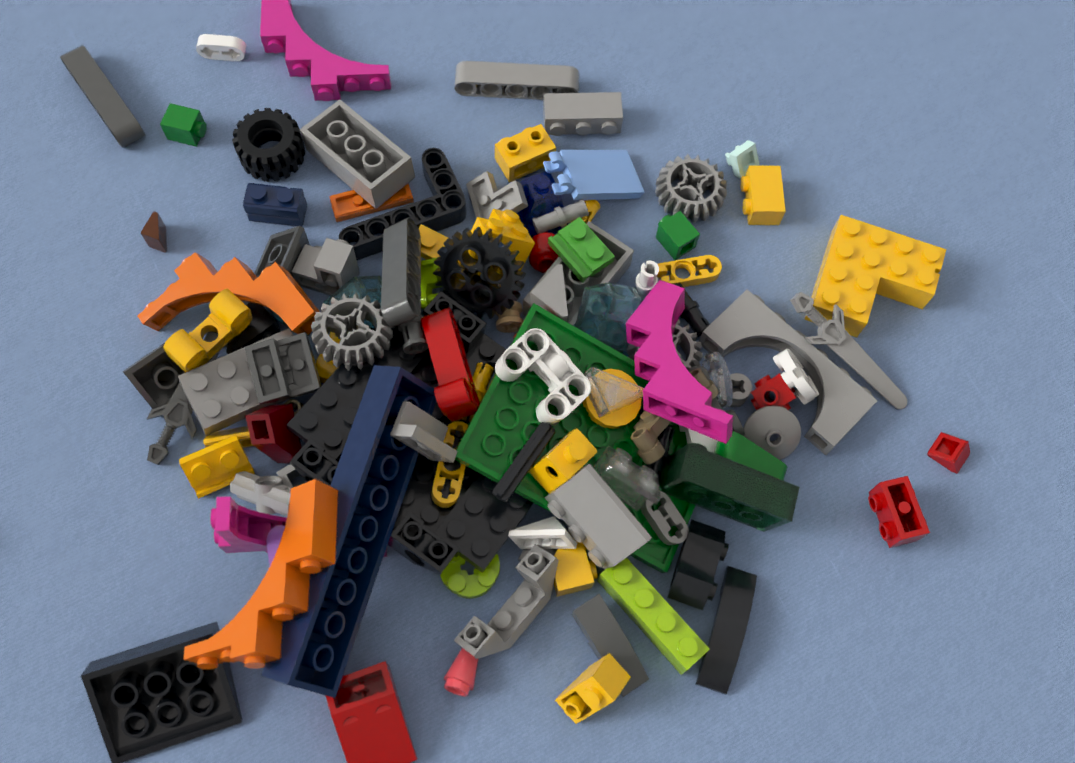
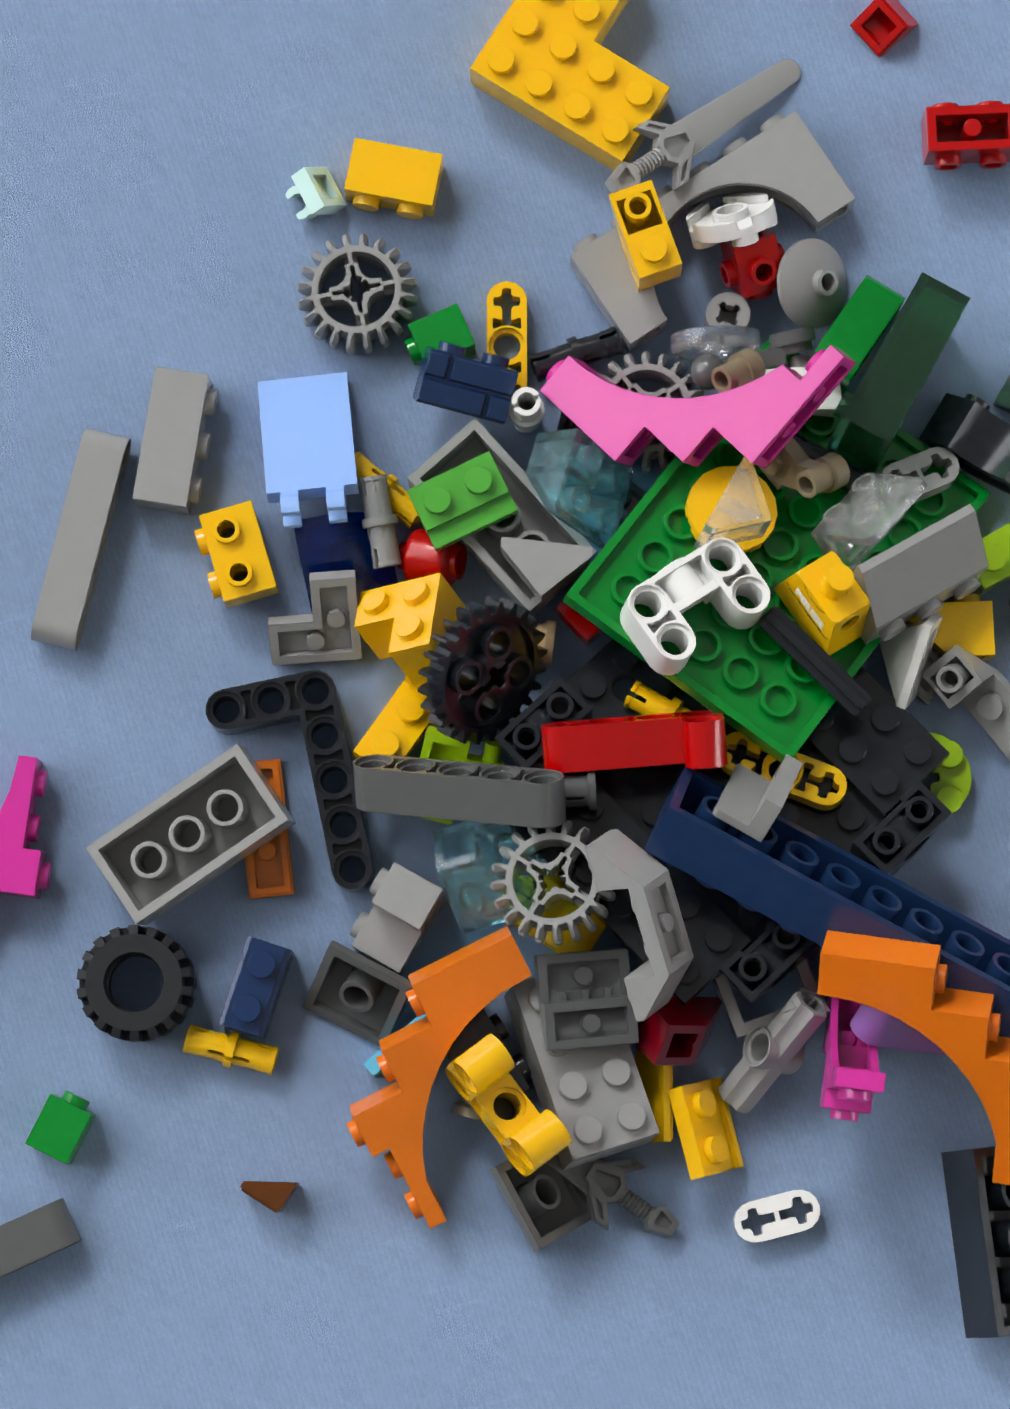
camera: 70 degrees left, 15 degrees up
(173, 521) = (779, 1227): none -> white beam
(236, 211) = (231, 1049): none -> yellow pin
(332, 382) = (624, 865): none -> light grey slope
(652, 240) = (466, 383): none -> dark blue brick
(770, 320) = (645, 235): none -> yellow slope

